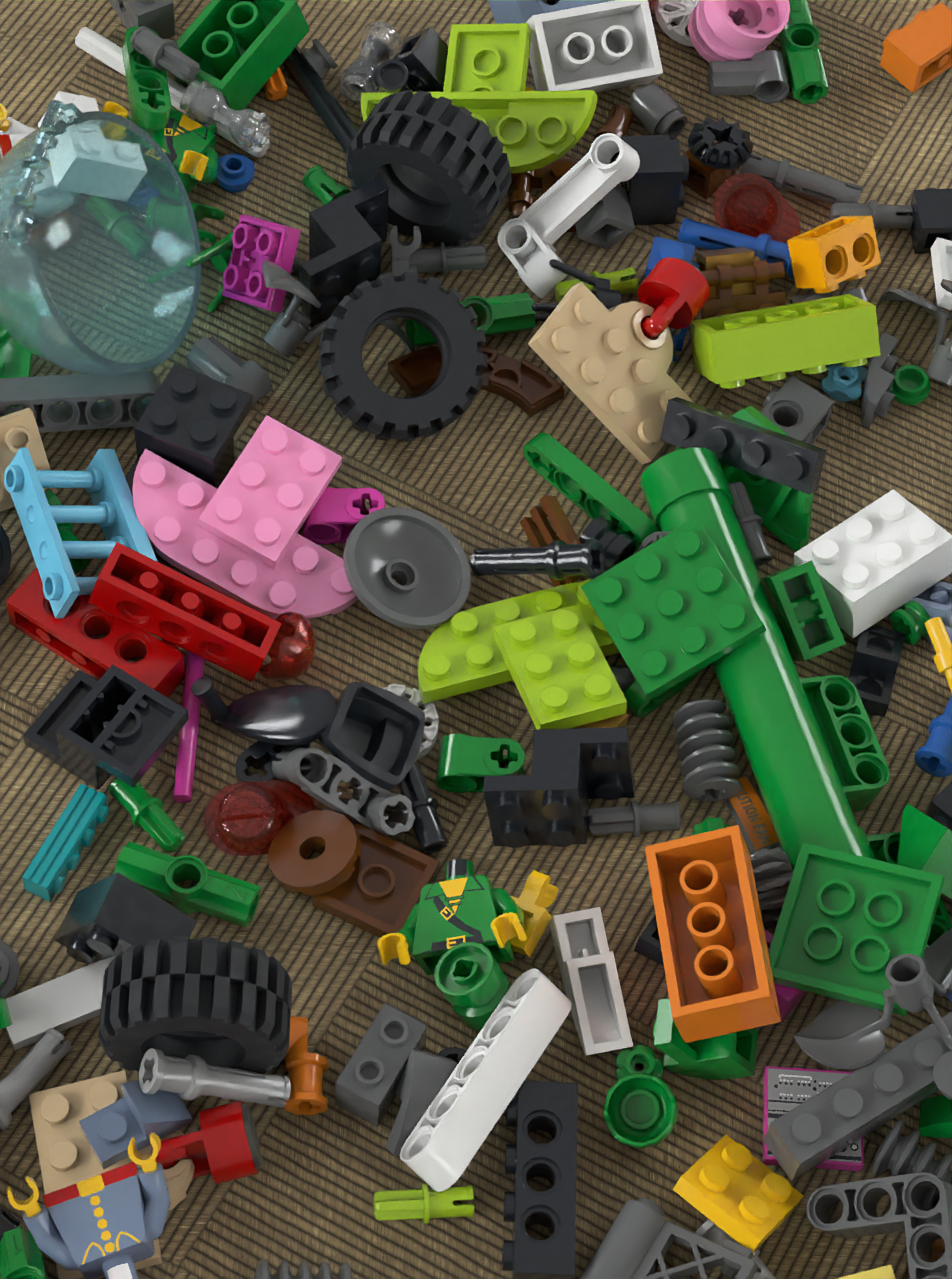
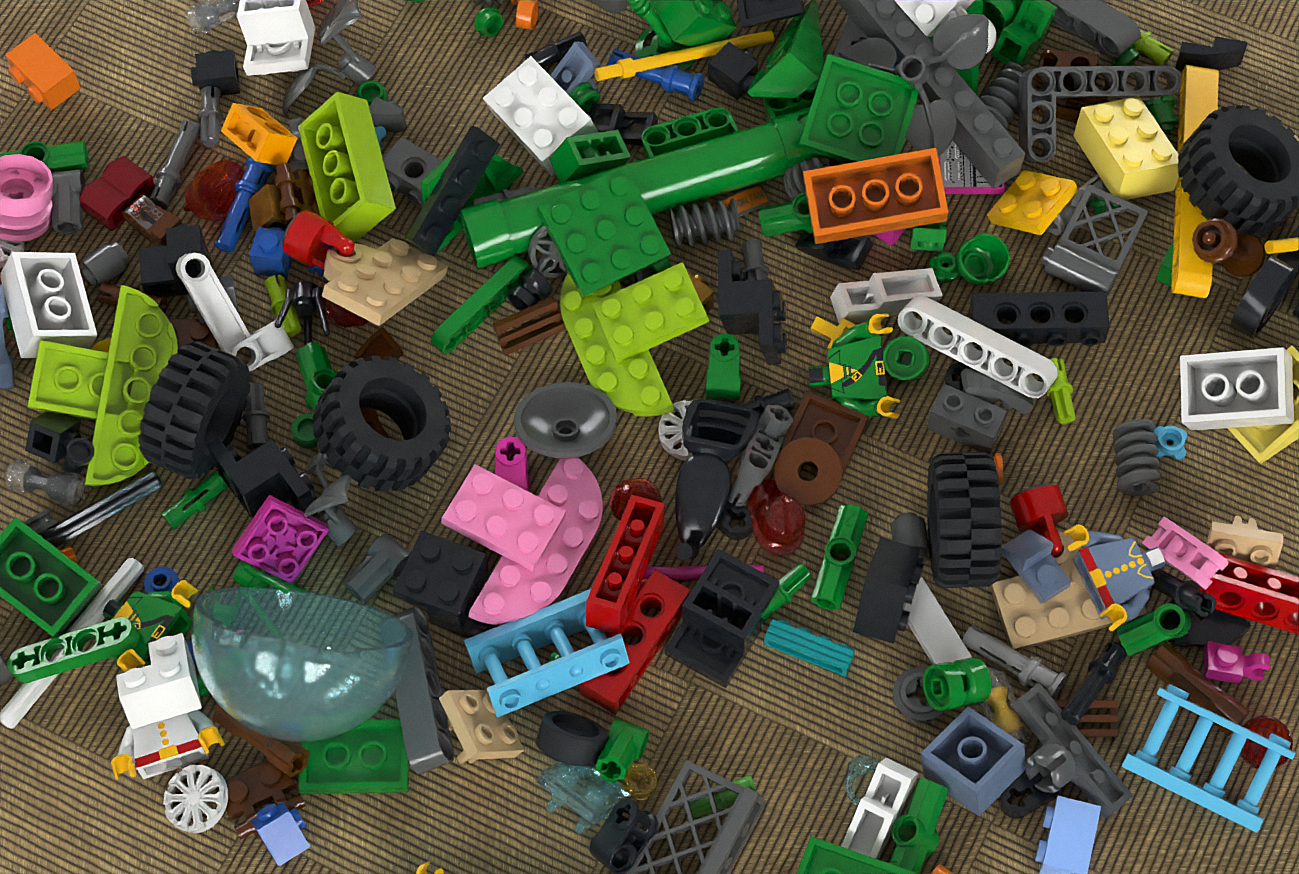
camera: 85 degrees left, 5 degrees up
(164, 54) = (60, 628): dark grey axle -> none
(194, 1078) = (1011, 521): light grey pin -> none
(209, 106) = (111, 593): clear piece -> none
(402, 251) = (280, 435): dark grey plate -> none
(555, 560) = (557, 315): black pin -> none
(723, 155) = (153, 220): black gear -> none
(772, 125) = (115, 191): none -> dark red brick

